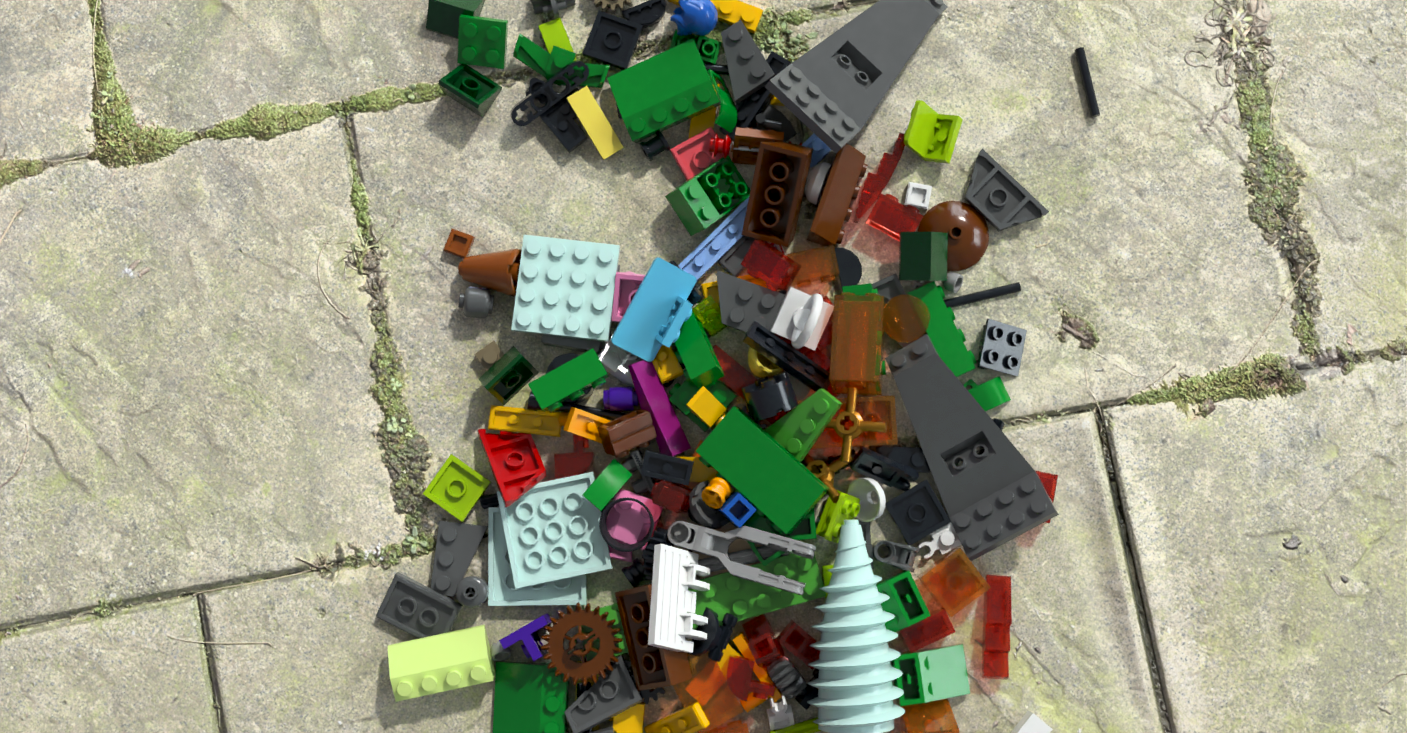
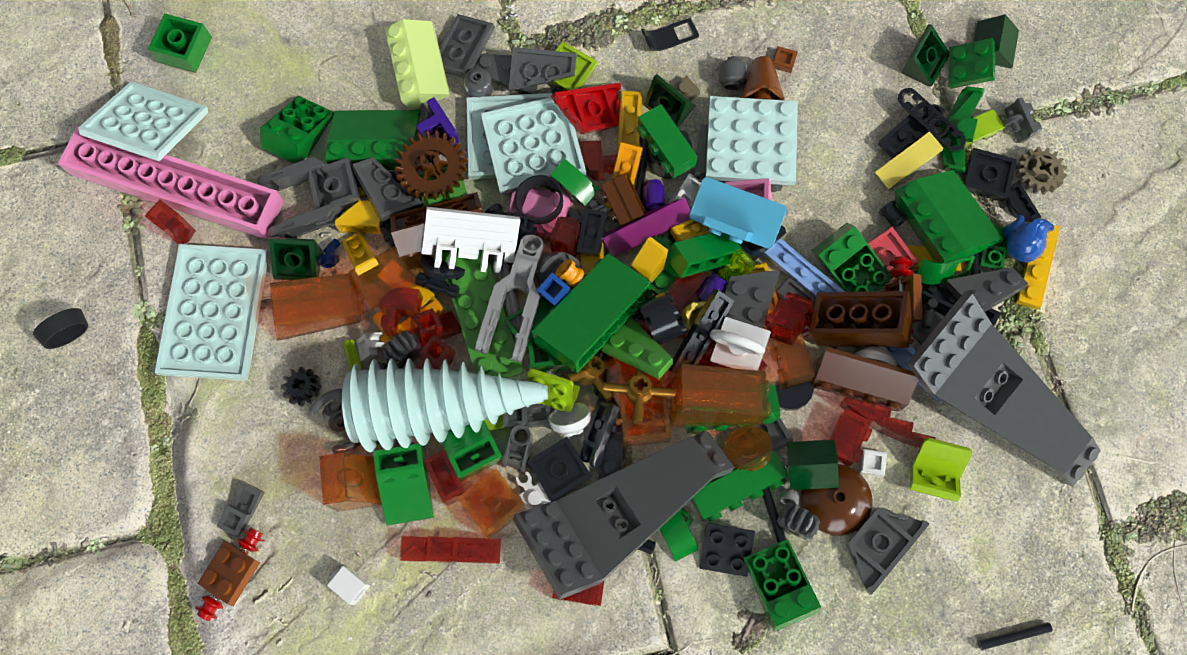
camera: 90 degrees right, 10 degrees down
(421, 374) = (666, 37): none -> black piece
(457, 522) = (539, 67): none -> dark grey wing
(732, 343) = (709, 284): none -> dark purple brick
(979, 275) = (798, 521): none -> dark grey gear
(1039, 297) = (782, 585): none -> green slope

